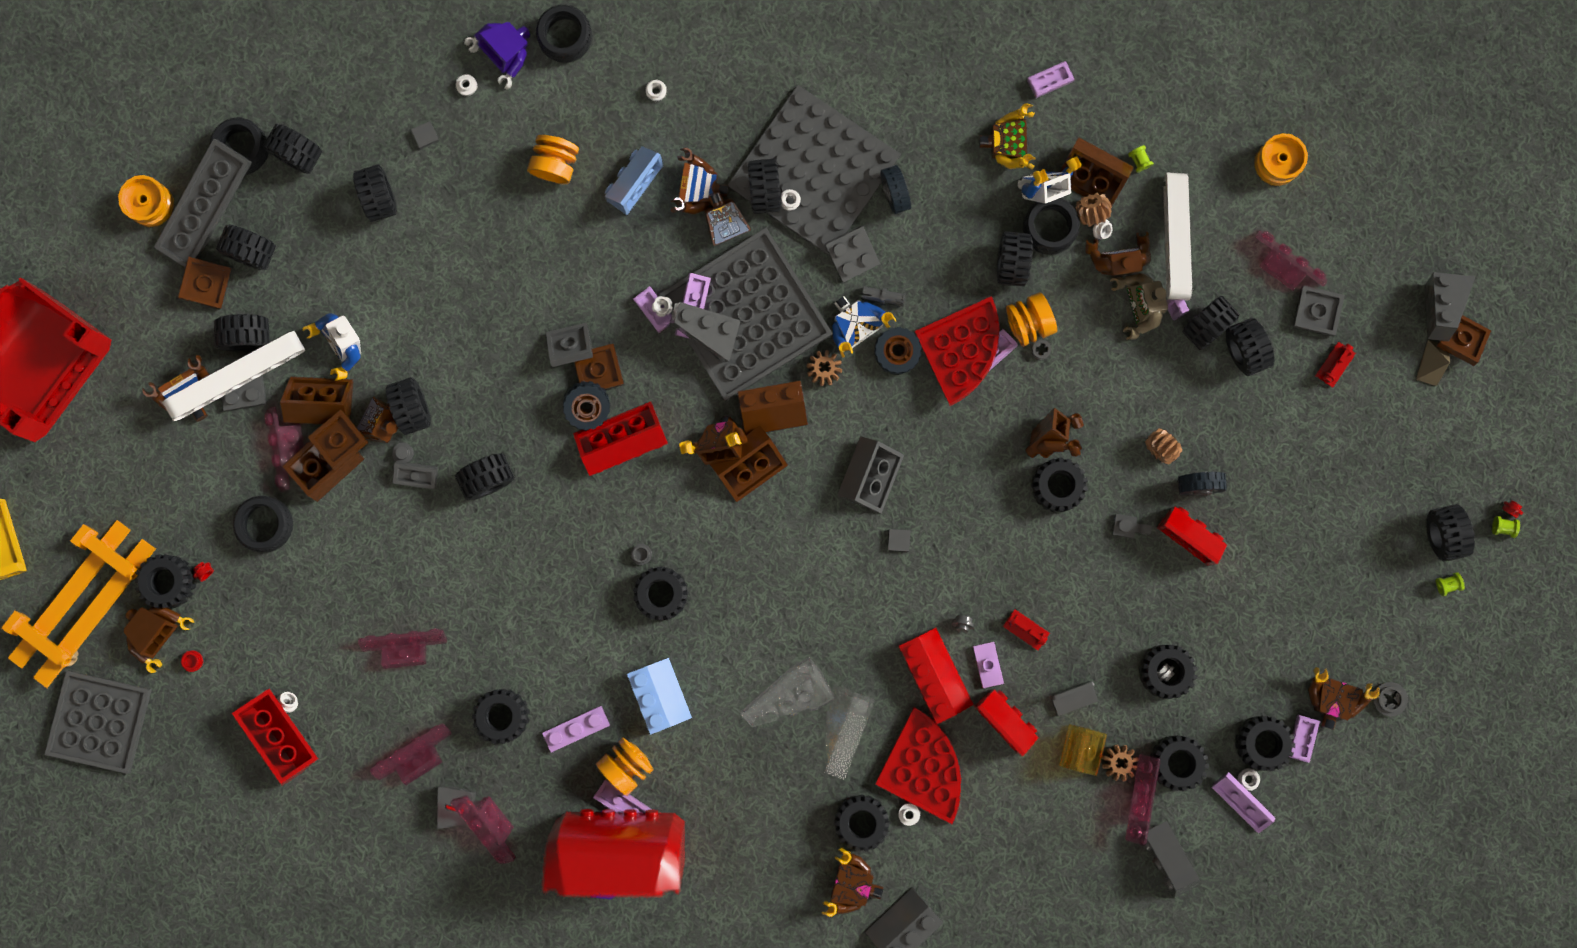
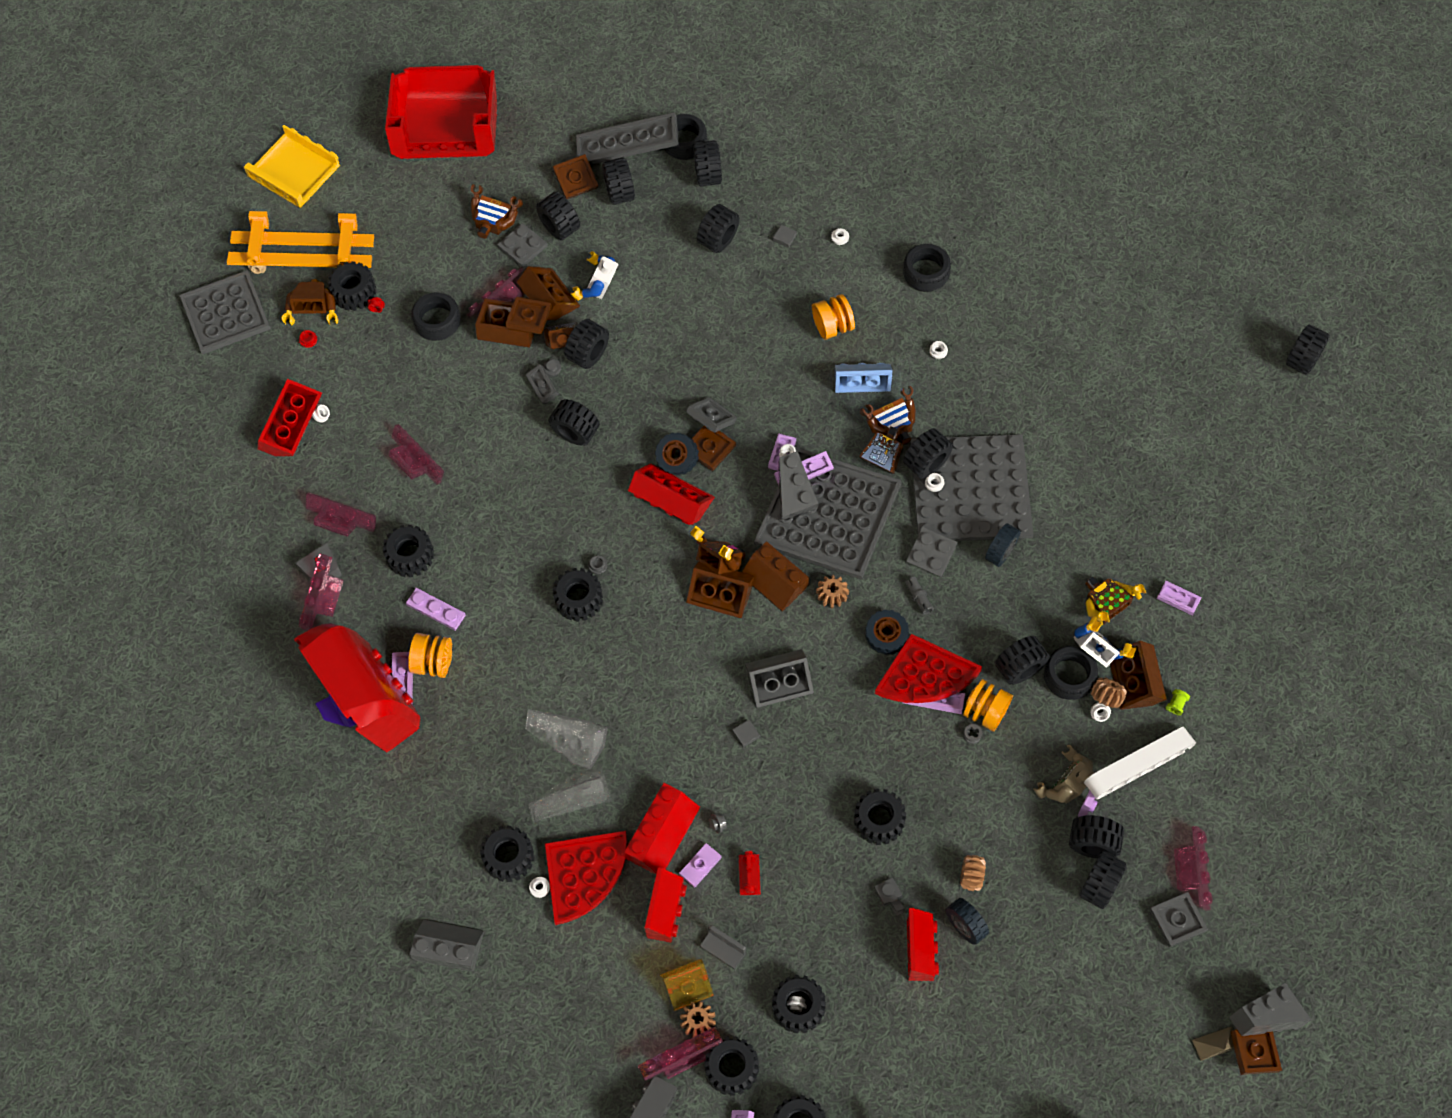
camera: 55 degrees right, 20 degrees down
(146, 201) = (602, 108): light orange wheel -> none
(233, 376) = (525, 231): white beam -> none
(503, 46) = (884, 240): dark purple torso -> none
(659, 696) = (500, 645): light blue slope -> none
(852, 885) = (454, 880): reddish brown torso -> none
(857, 323) = (882, 589): torso -> none
(1052, 435) = (914, 780): reddish brown torso -> none
(1122, 260) = (1089, 741): reddish brown torso -> none
(1289, 150) = (1268, 802): light orange wheel -> none
(1335, 364) = (1149, 965): red hinge -> none

